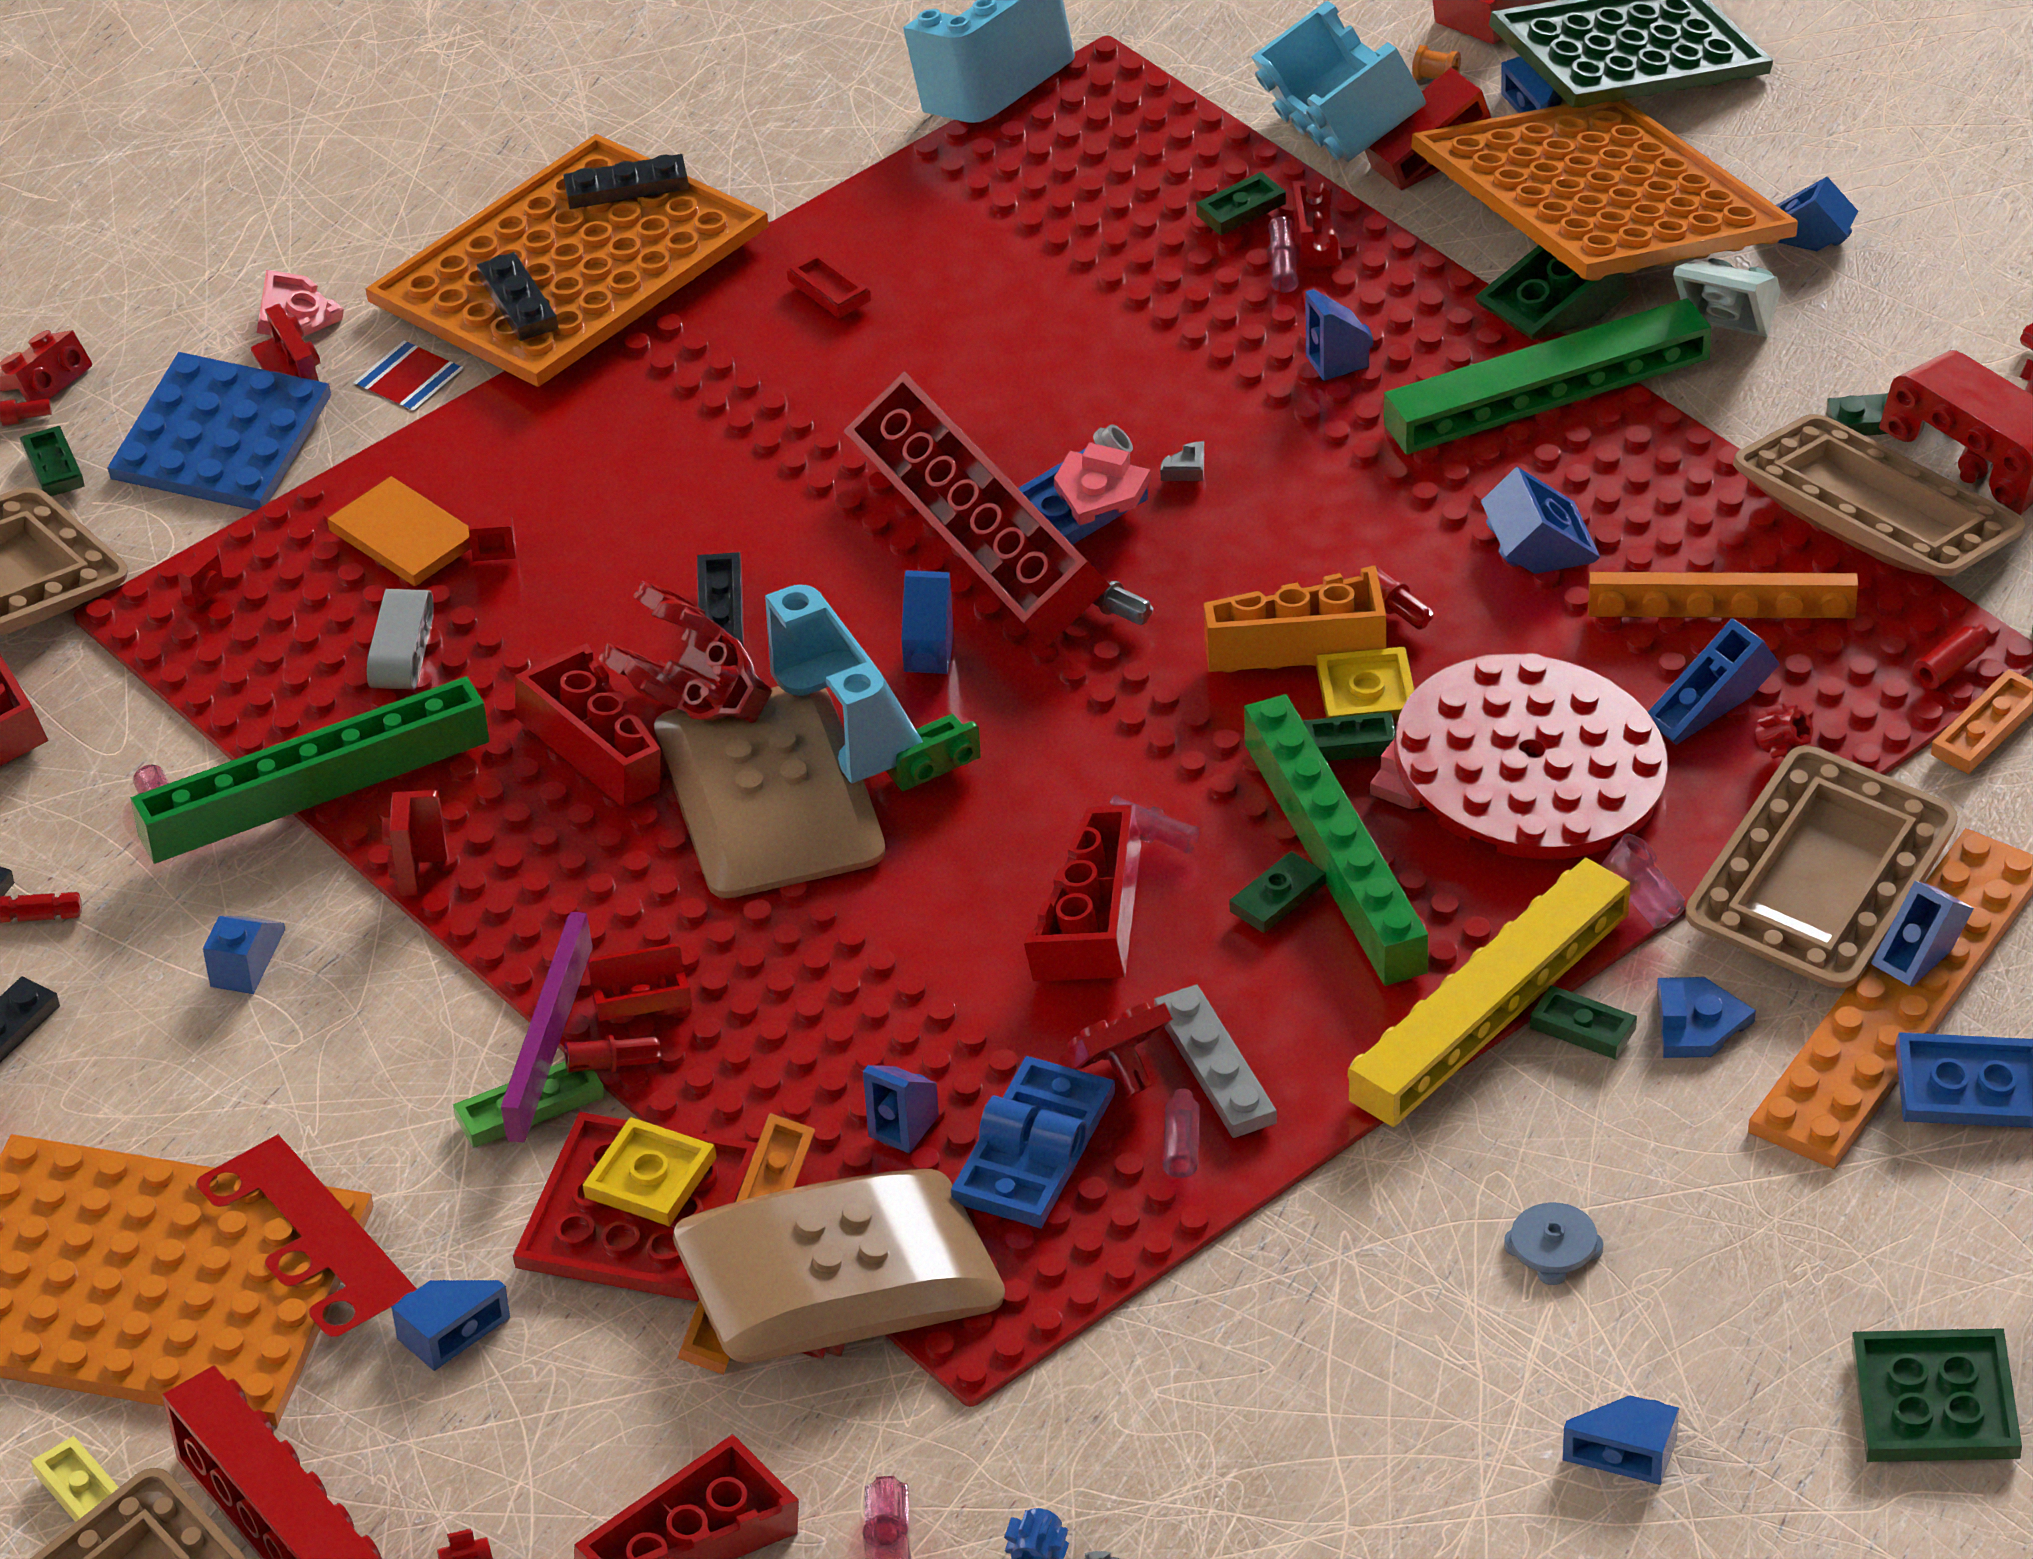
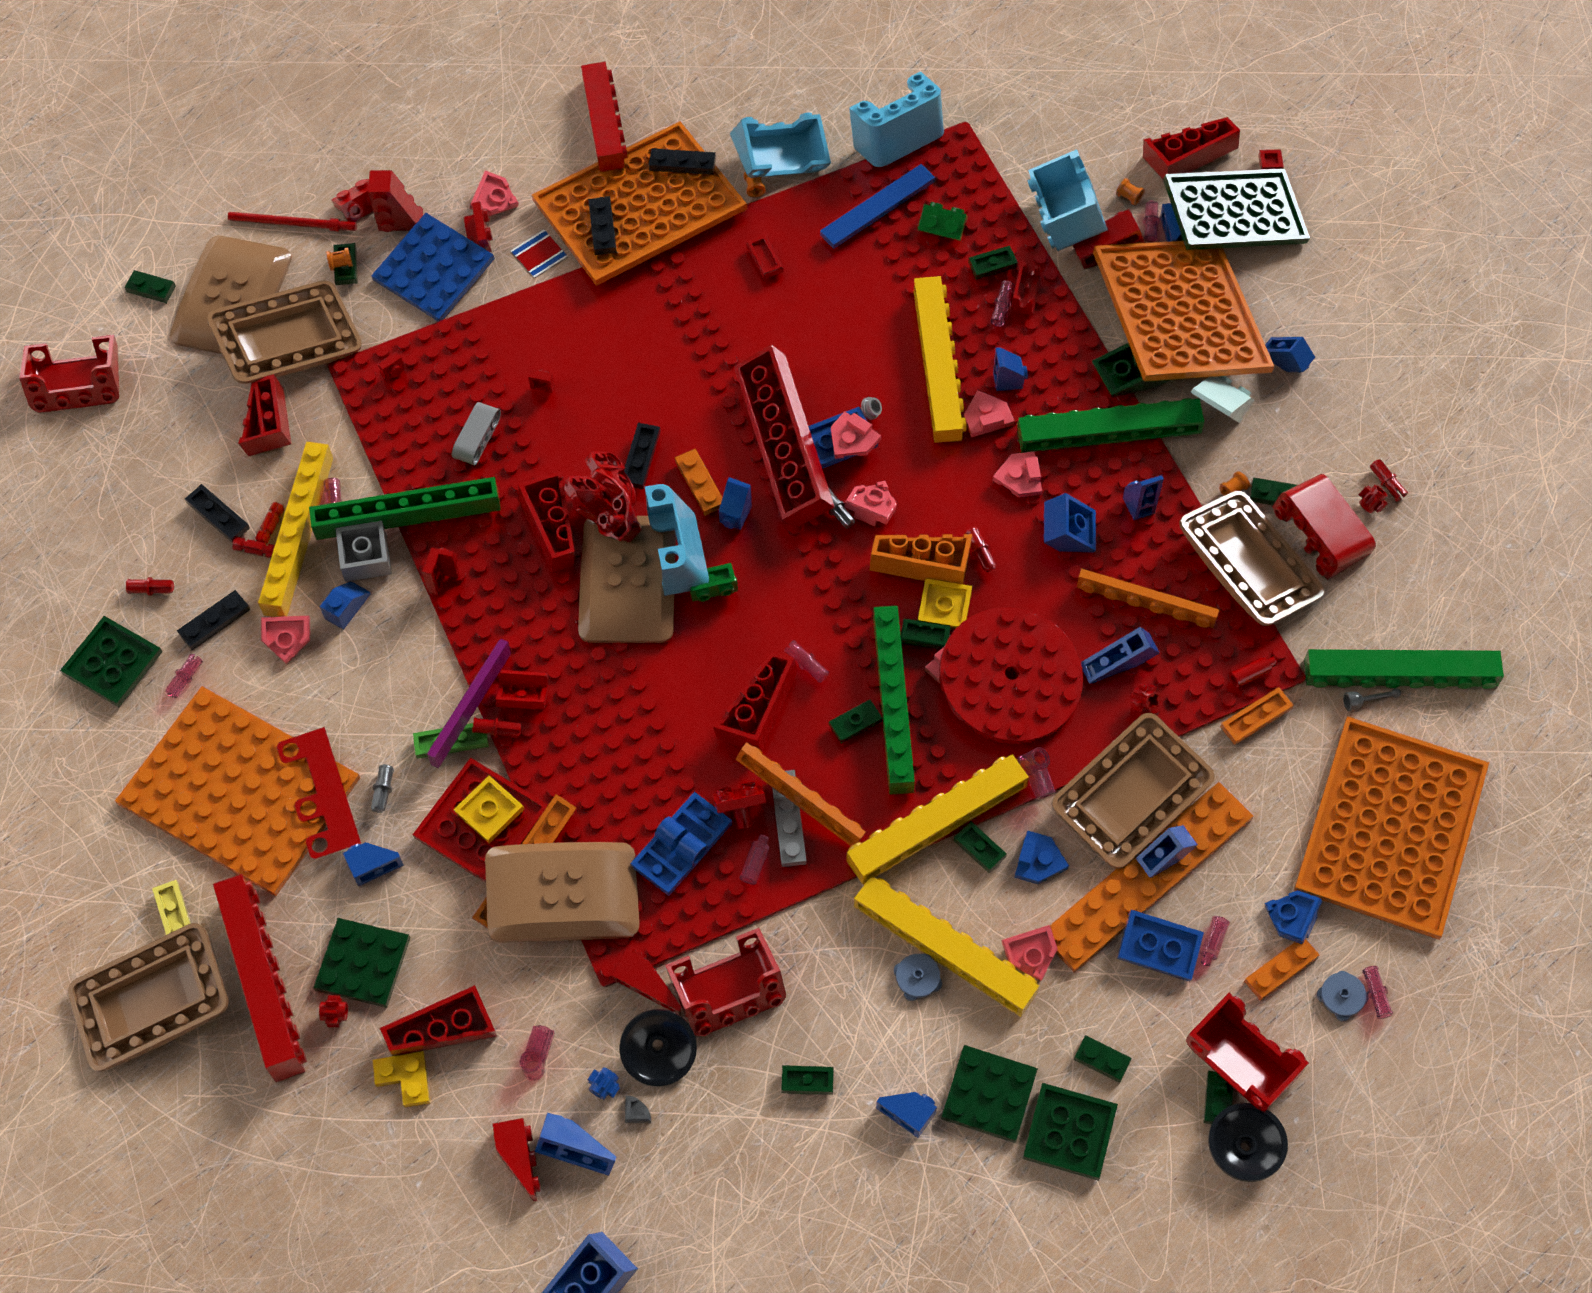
camera: 15 degrees right, 20 degrees up
(42, 446) = (339, 259): none -> orange bush
(51, 862) = (269, 522): none -> red axle
(108, 861) = (295, 530): none -> yellow brick
(113, 345) = (390, 202): none -> red wedge
(147, 1018) = (285, 635): none -> coral plate
(253, 856) = (363, 551): none -> light grey brick
(402, 530) = (500, 360): orange tile -> none
(425, 1203) = (382, 788): none -> flat silver axle
(456, 152) = (603, 116): none -> red brick
(490, 1476) = (362, 962): none -> dark green plate
(767, 190) = (754, 183): none -> orange bush
(798, 130) = (782, 146): none -> medium azure windscreen
(872, 632) = (699, 481): none -> orange plate
(899, 1105) = (623, 803): blue slope -> none
(1001, 174) = (877, 206): none -> blue tile
(1048, 1360) = (641, 977): none -> red slope
(1127, 166) = (942, 221): none -> green bracket
(1140, 1428) = (662, 1064): none -> black dish
(1172, 577) = (872, 503): none -> coral plate
(1184, 465) = (905, 428): flat silver tile -> none
(1204, 353) = (938, 359): none -> yellow brick
(1221, 1343) = (730, 987): none -> red windscreen
(1226, 1005) = (800, 795): none -> orange plate
(1324, 412) = (987, 414): none -> coral plate
(1418, 1441) = (807, 1080): none -> dark green plate
(1421, 479) = (1020, 475): none -> coral plate
(1492, 92) = (1151, 221): none -> clear pink axle
(1591, 1175) = (946, 946): none -> yellow brick
(1651, 445) = (1143, 496): none -> blue slope
(1744, 1147) = (1031, 951): none -> coral plate
(1762, 1381) = (989, 1093): none -> dark green plate
(1801, 403) = (1237, 483): none -> orange bush
(1944, 1278) = (1102, 1058): none -> dark green plate

